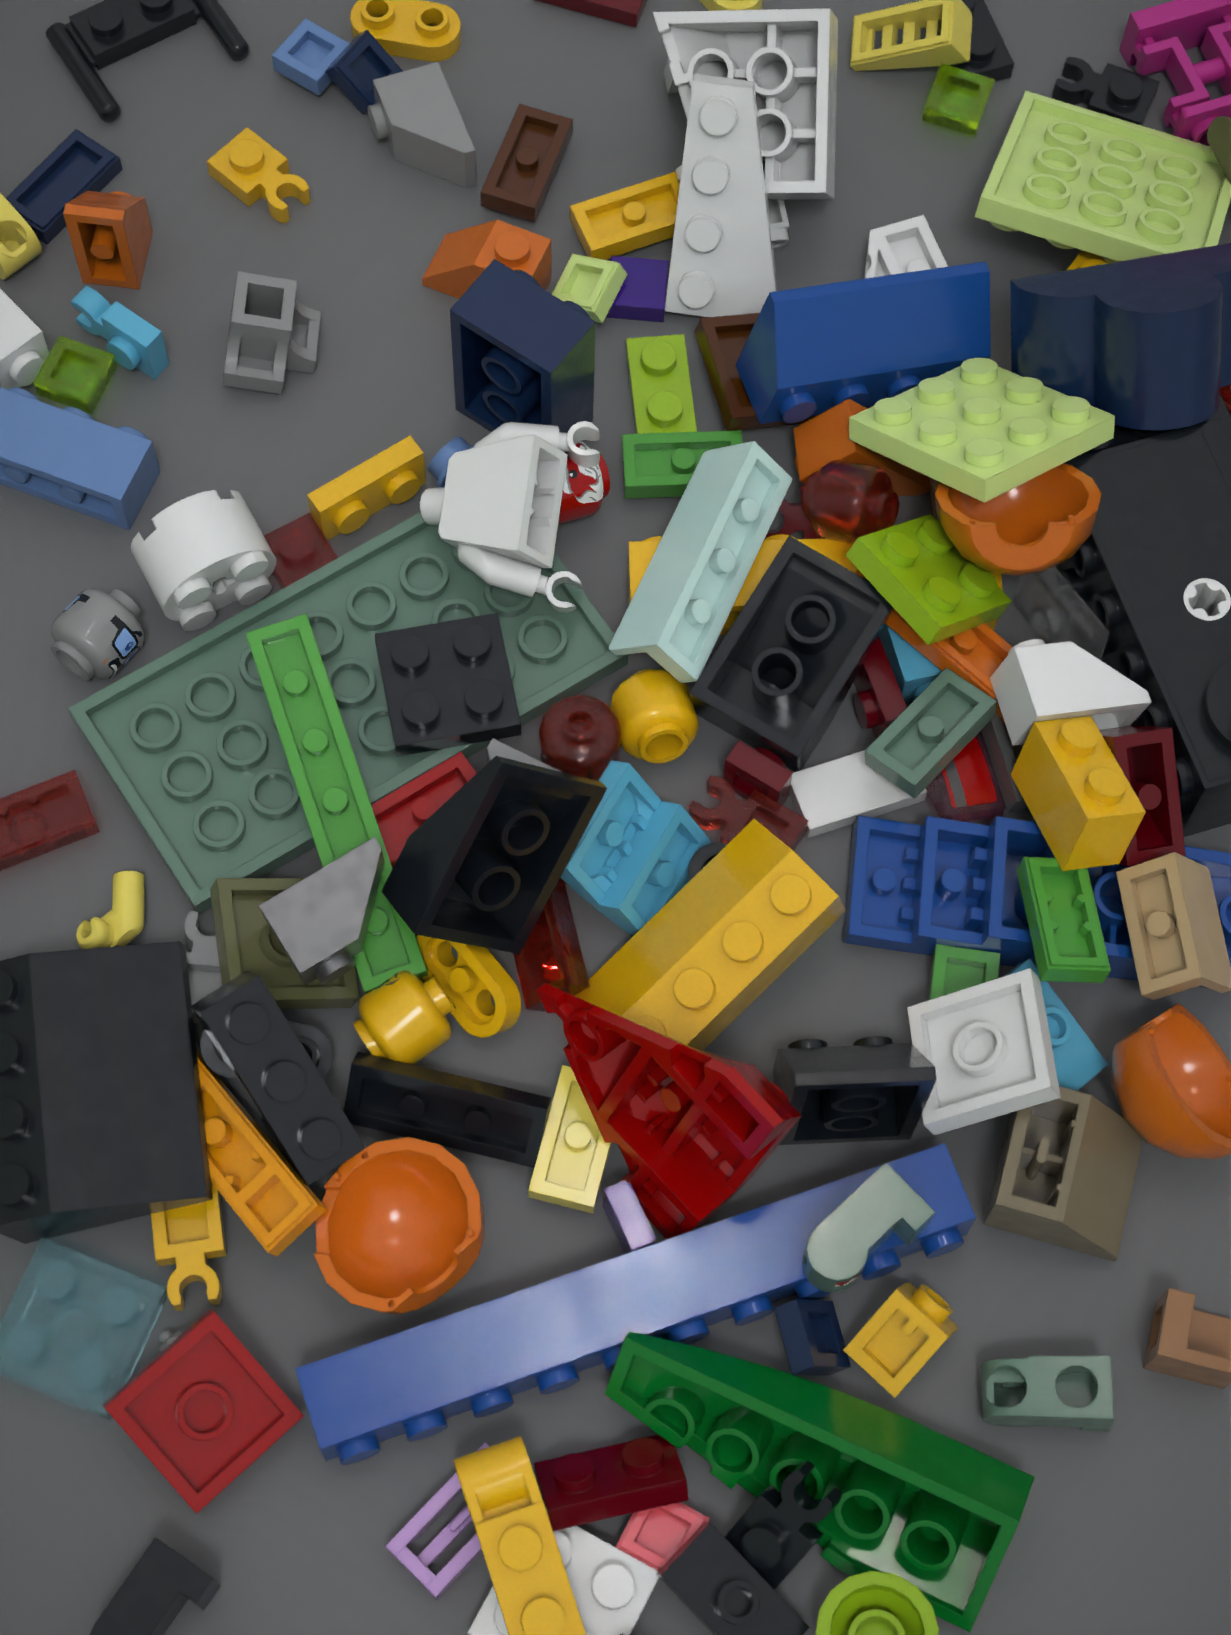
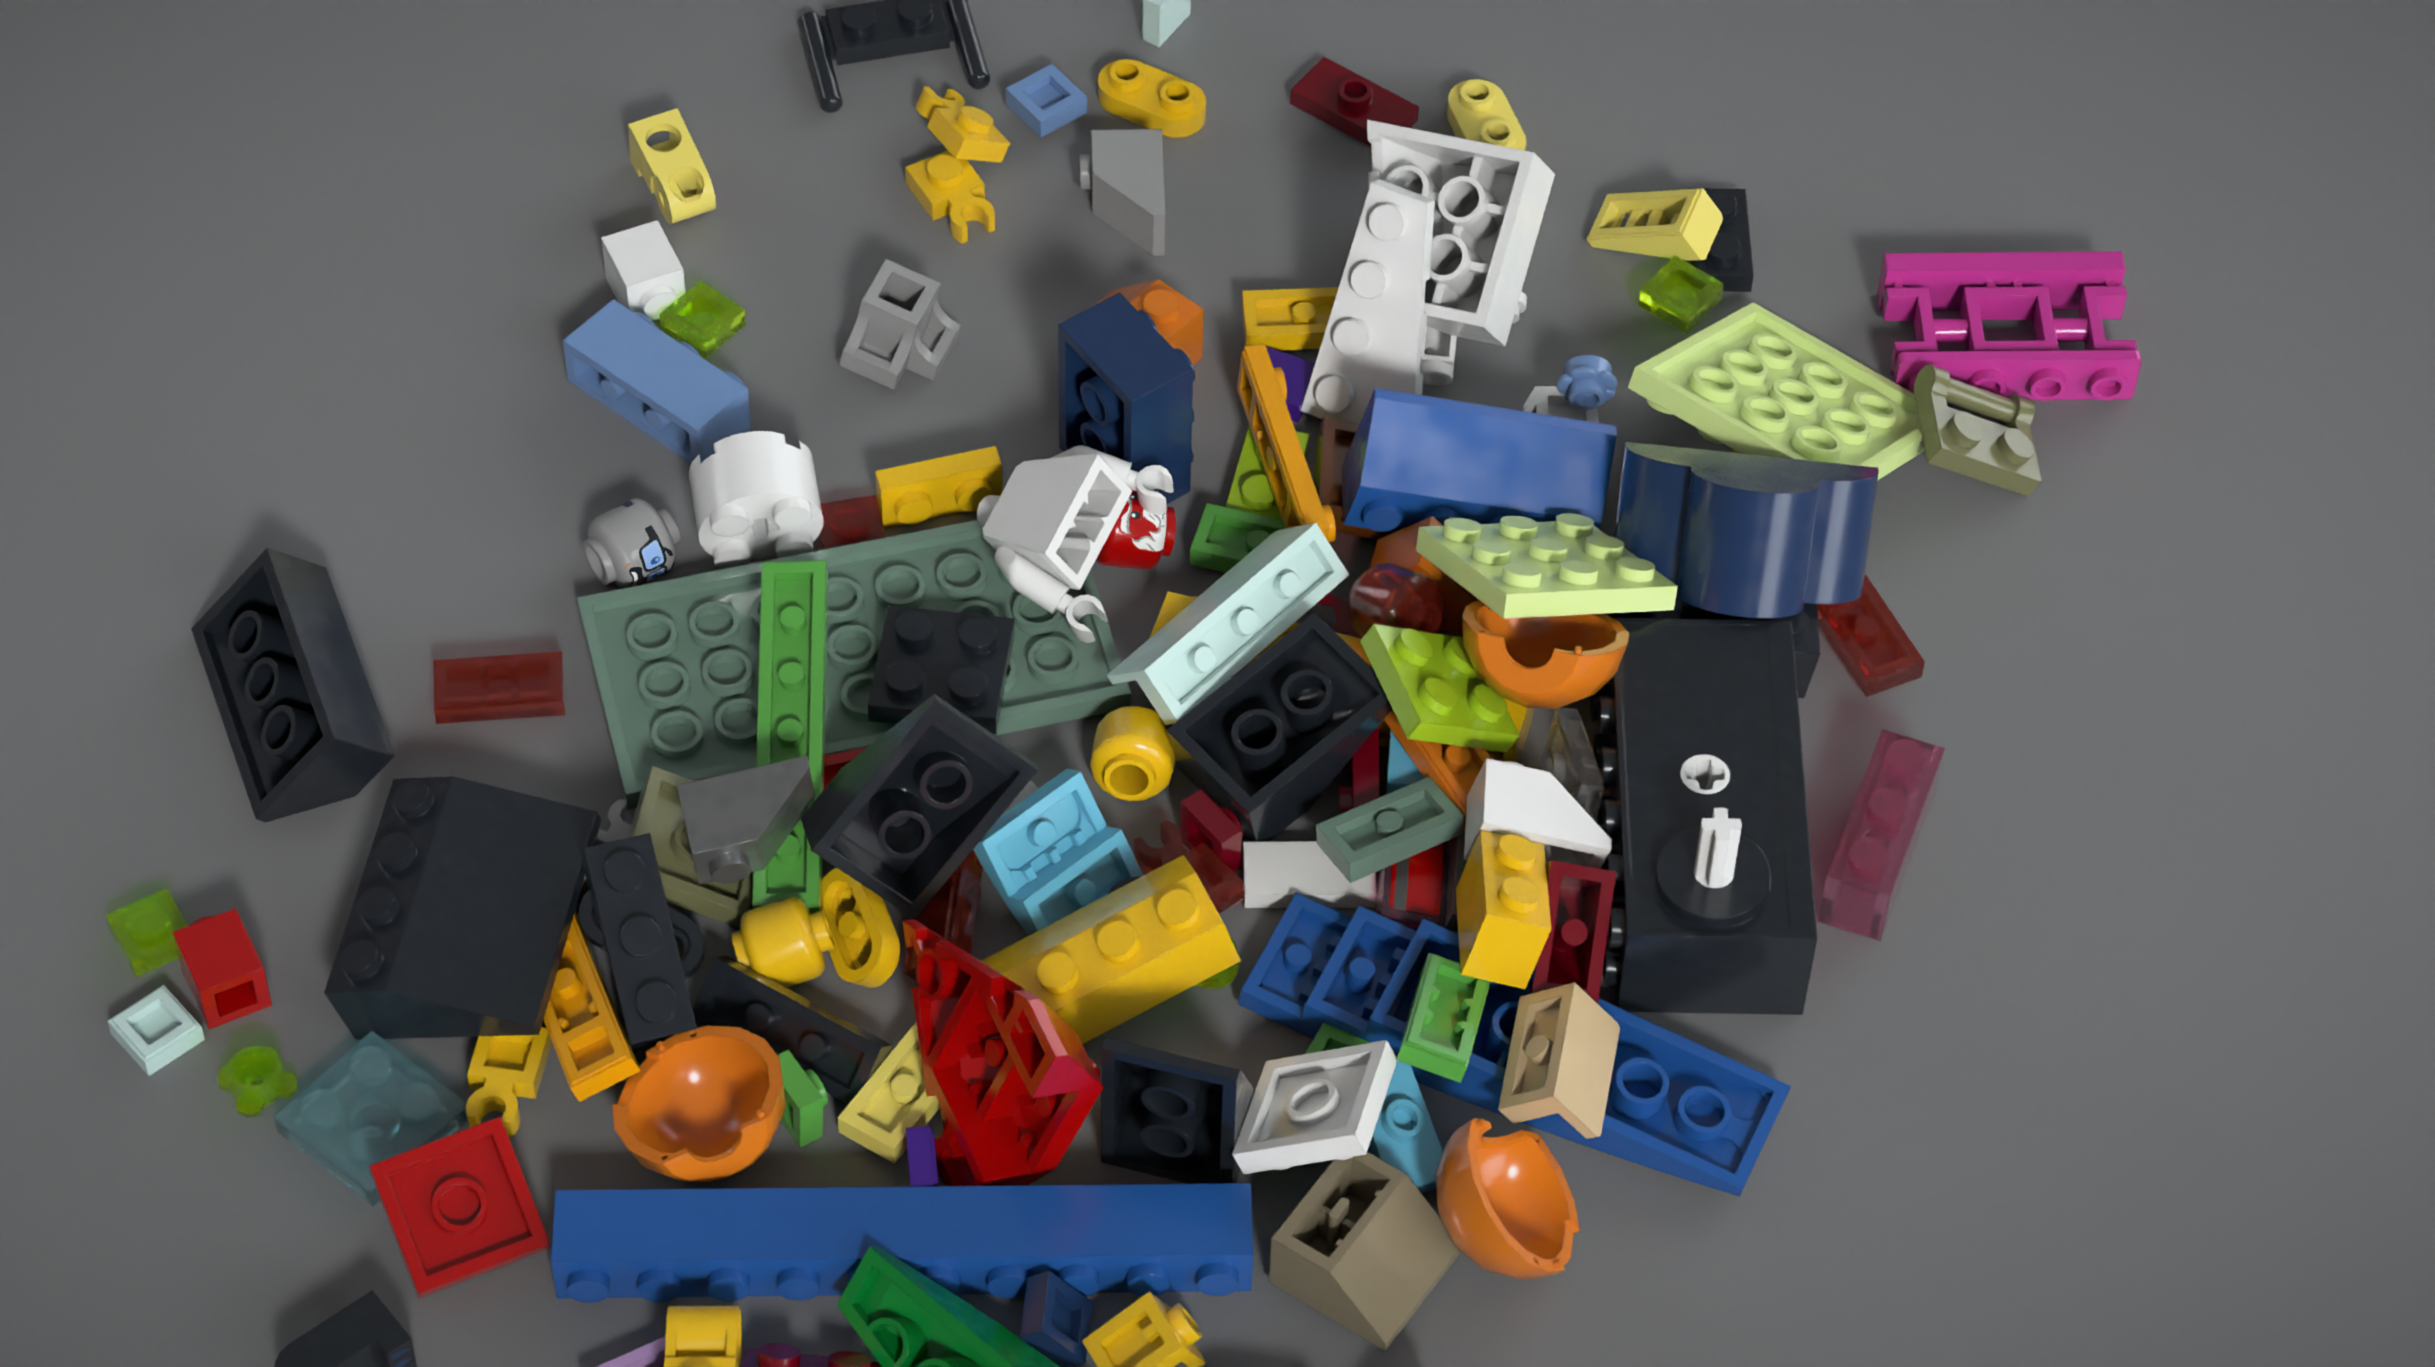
camera: 20 degrees right, 15 degrees down
(67, 172) = (761, 156): dark blue tile -> none
(109, 237) = (782, 207): orange slope -> none
(124, 919) = (564, 782): light yellow arm -> none
(128, 335) = (765, 297): medium azure plate -> none
(246, 108) = (962, 129): none -> yellow plate
(358, 67) = (1089, 113): dark blue tile -> none
(489, 1177) = (804, 1101): none -> bright green plate
(527, 162) = (1218, 244): reddish brown plate -> none
(580, 736) = (1053, 741): clear red head -> none
(590, 284) = (1219, 369): yellowish green tile -> none
(675, 363) = (1264, 402): none -> light orange plate
(861, 1225) = (1131, 1220): sand green leg -> none
(922, 215) = (1587, 382): none -> medium blue plate
(1113, 93) = (1847, 329): black plate -> none

